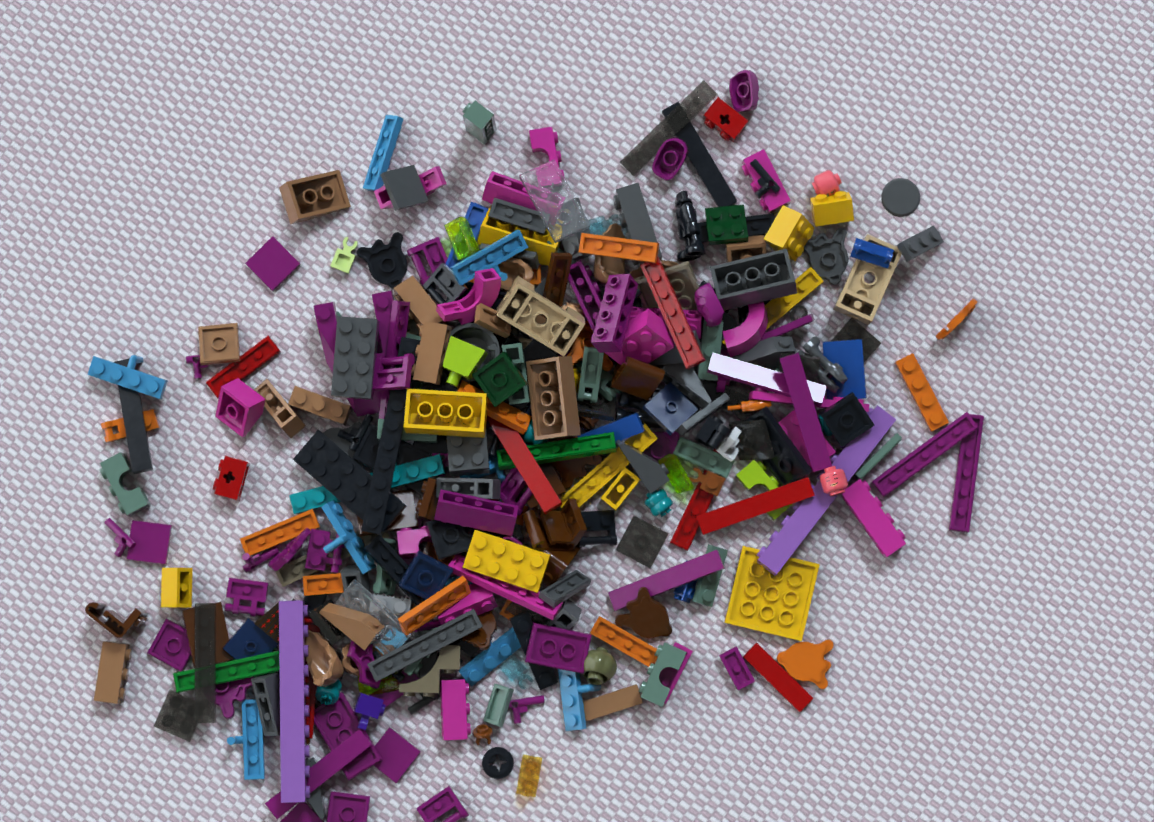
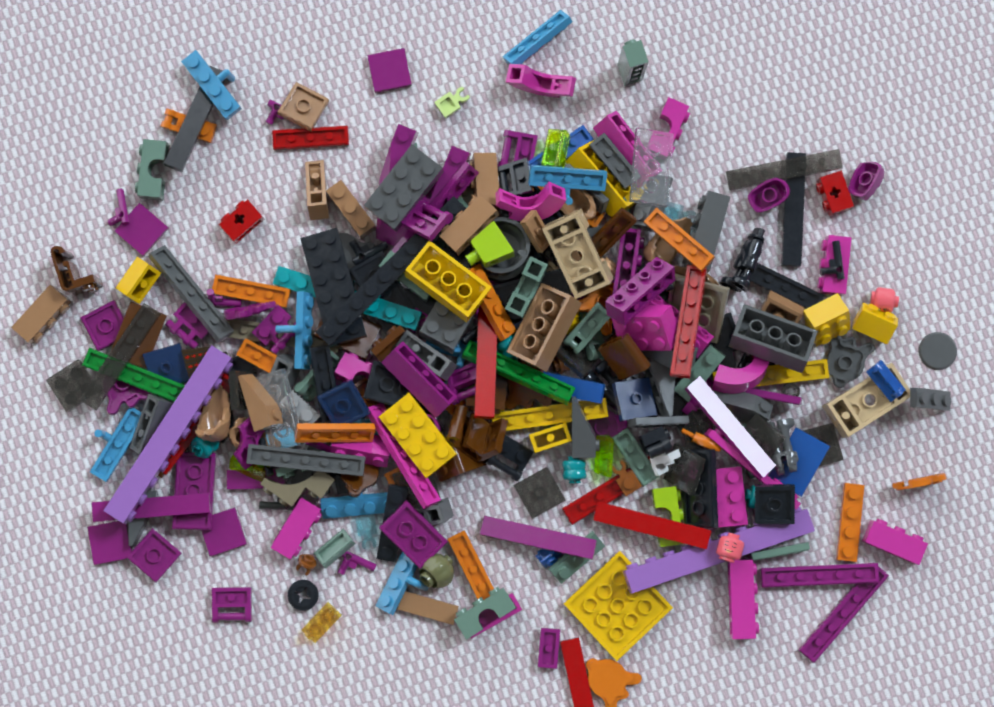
camera: 30 degrees right, 0 degrees up
(230, 569) = (191, 293): none -> dark grey plate
(239, 406) = (285, 167): dark pink slope -> none
(314, 196) = (458, 37): medium nougat slope -> none
(368, 707) = (228, 480): dark purple brick -> none
(386, 262) = (481, 128): black tile -> none
(404, 187) = (536, 76): dark grey tile -> none
(500, 379) = (510, 282): dark green plate -> none
(564, 588) = (450, 489): dark grey tile -> none
(646, 616) = (502, 556): reddish brown tile -> none
(709, 305) = (722, 335): magenta piece -> none
(726, 224) = (779, 279): dark green plate -> none
(805, 412) = (744, 475): magenta tile -> none
(969, 383) = (895, 541): none -> dark pink brick

